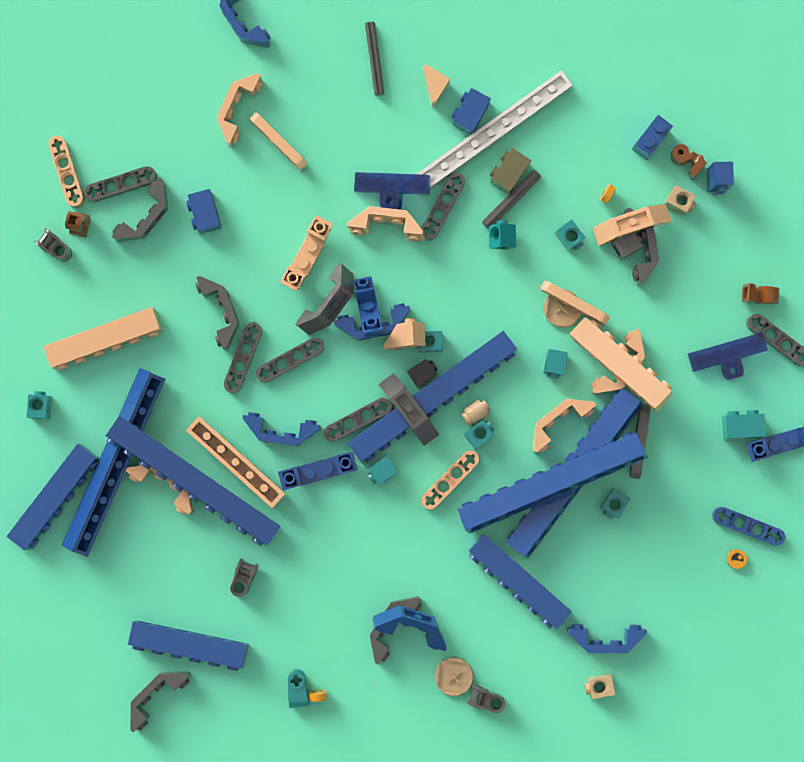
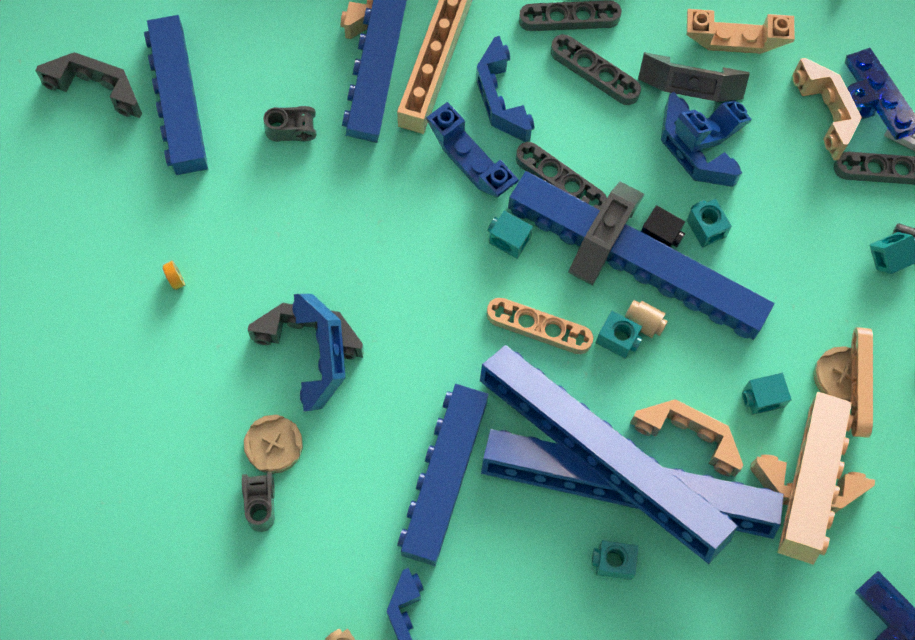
camera: 60 degrees right, 15 degrees down
(297, 691) = (170, 246): teal piece -> none
(406, 335) = (700, 184): light nougat slope -> none
(641, 429) = (729, 555): dark grey beam -> none

